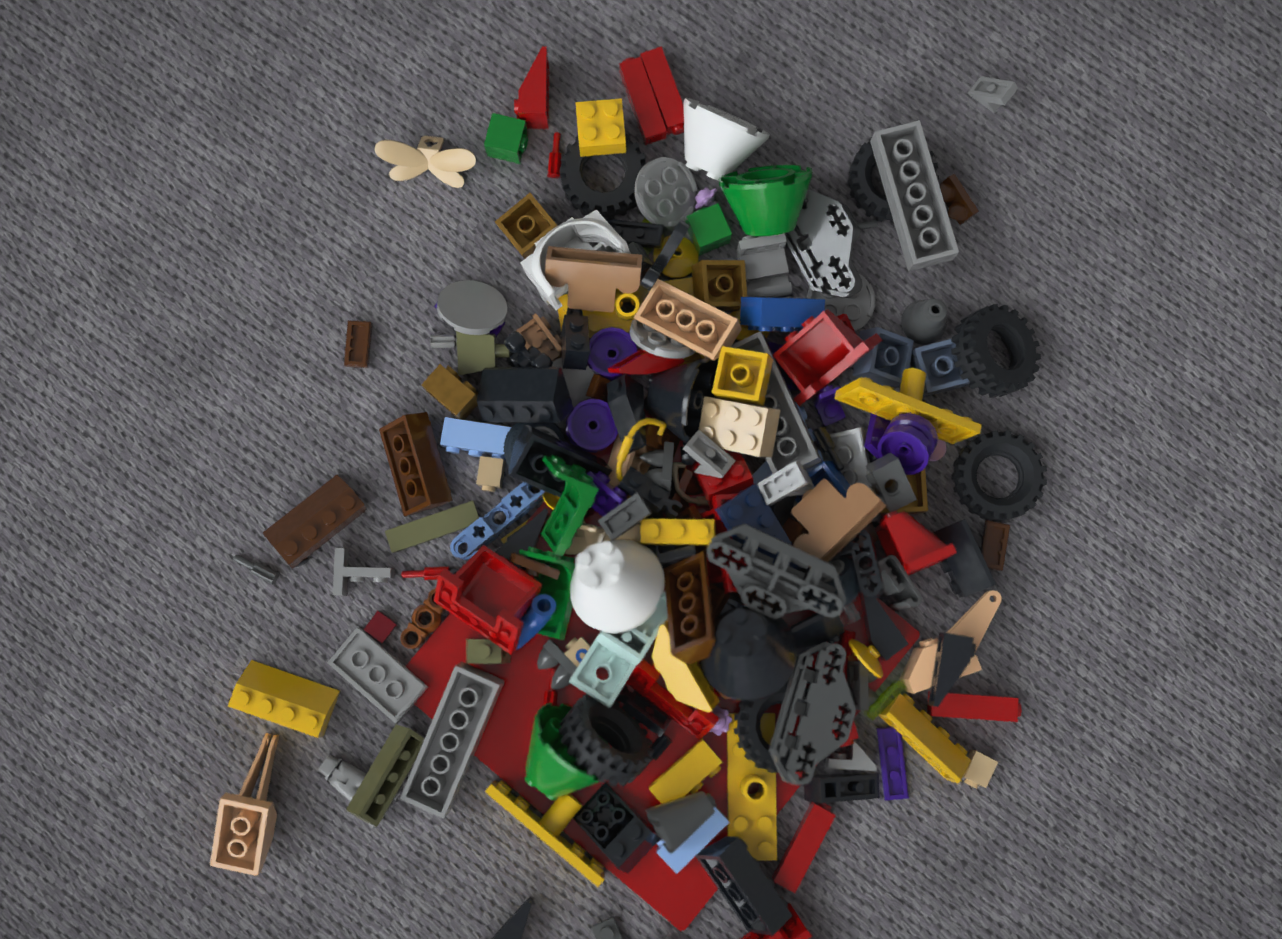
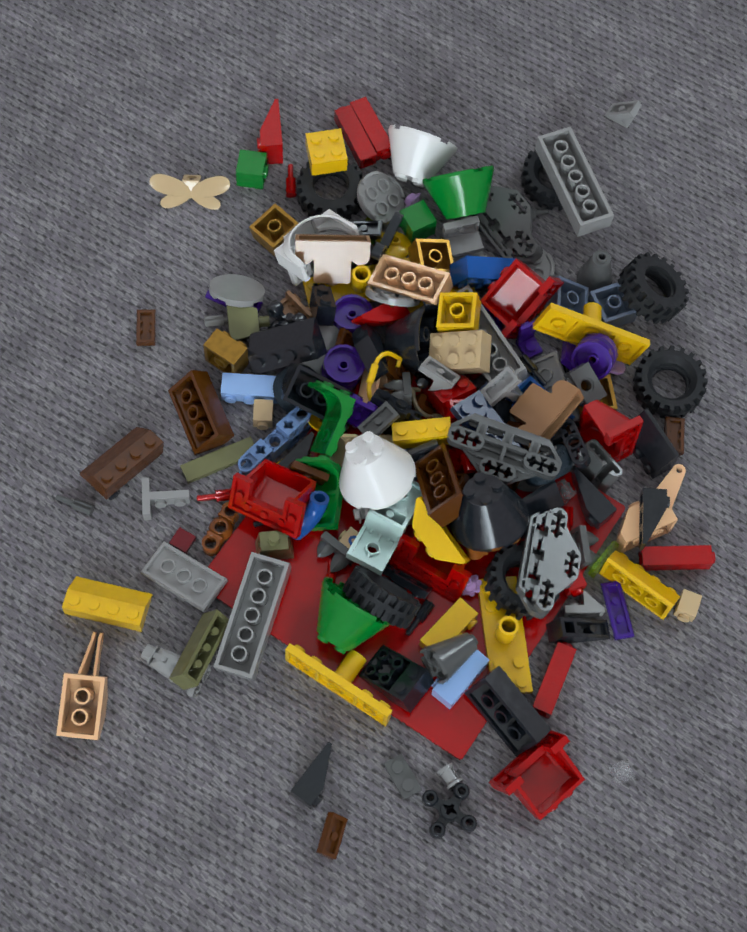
camera: 10 degrees left, 15 degrees down
(867, 656) = (586, 519): yellow dish -> none
(957, 199) = (610, 189): reddish brown tile -> none

